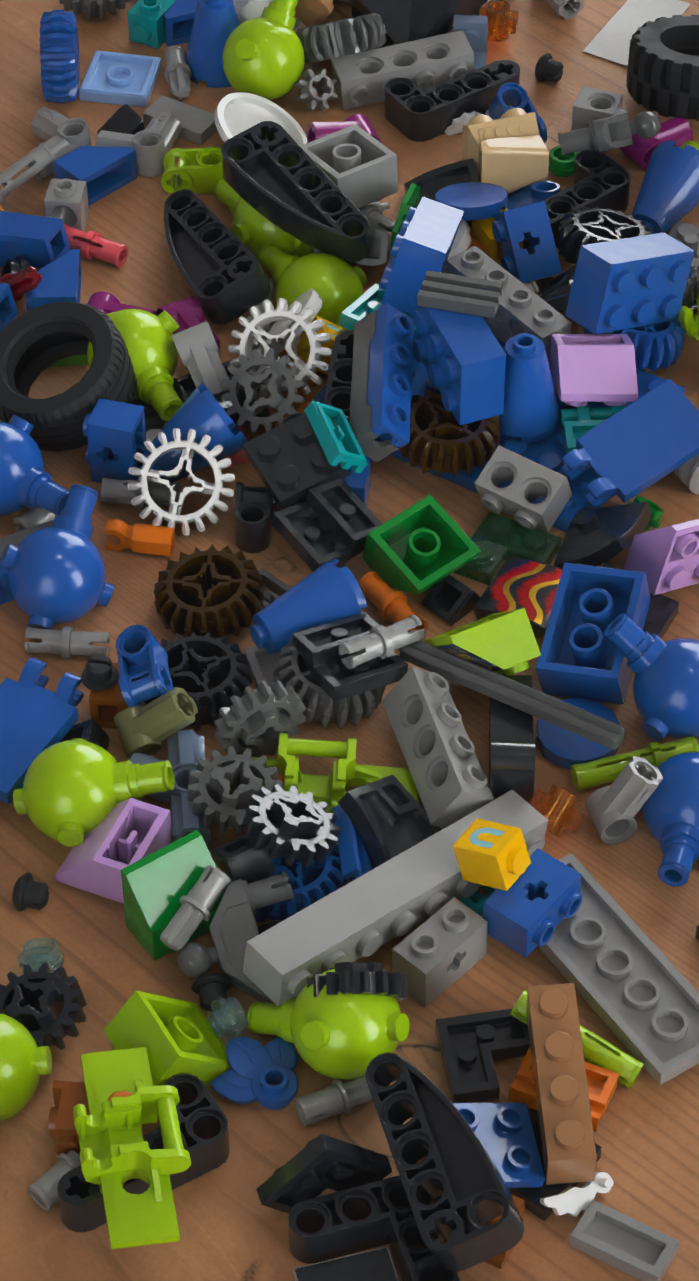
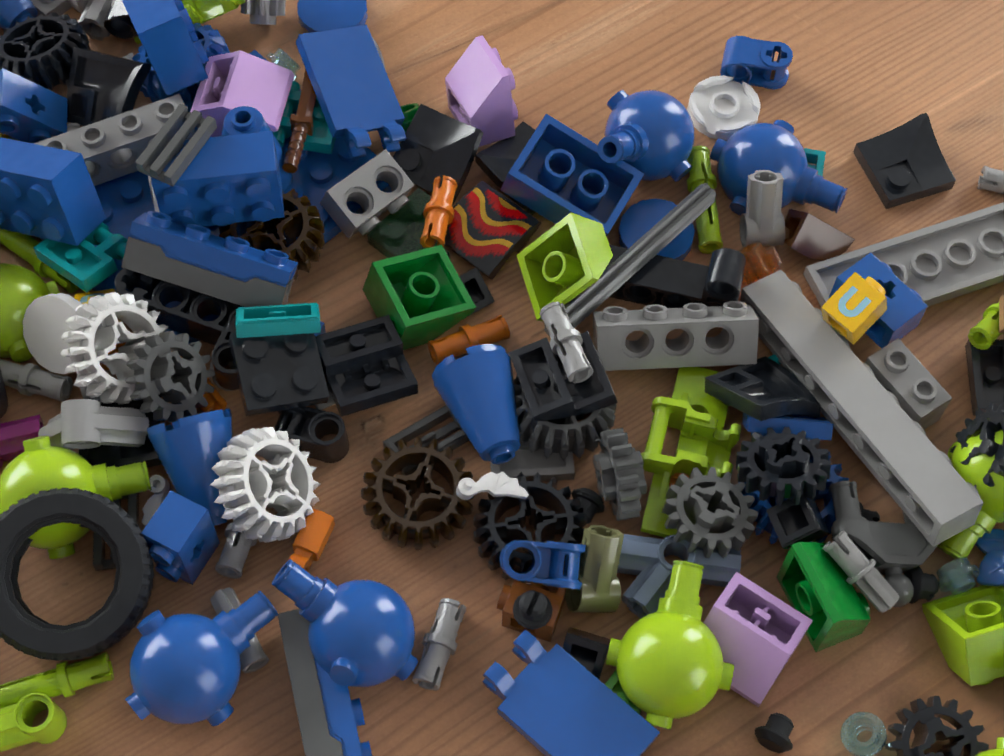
camera: 80 degrees left, 15 degrees up
(221, 626) = (494, 484): none -> white piece
(523, 547) = (438, 212): none -> orange pin
(565, 417) = (300, 126): none -> reddish brown sword
(617, 859) = (814, 237): none -> brick

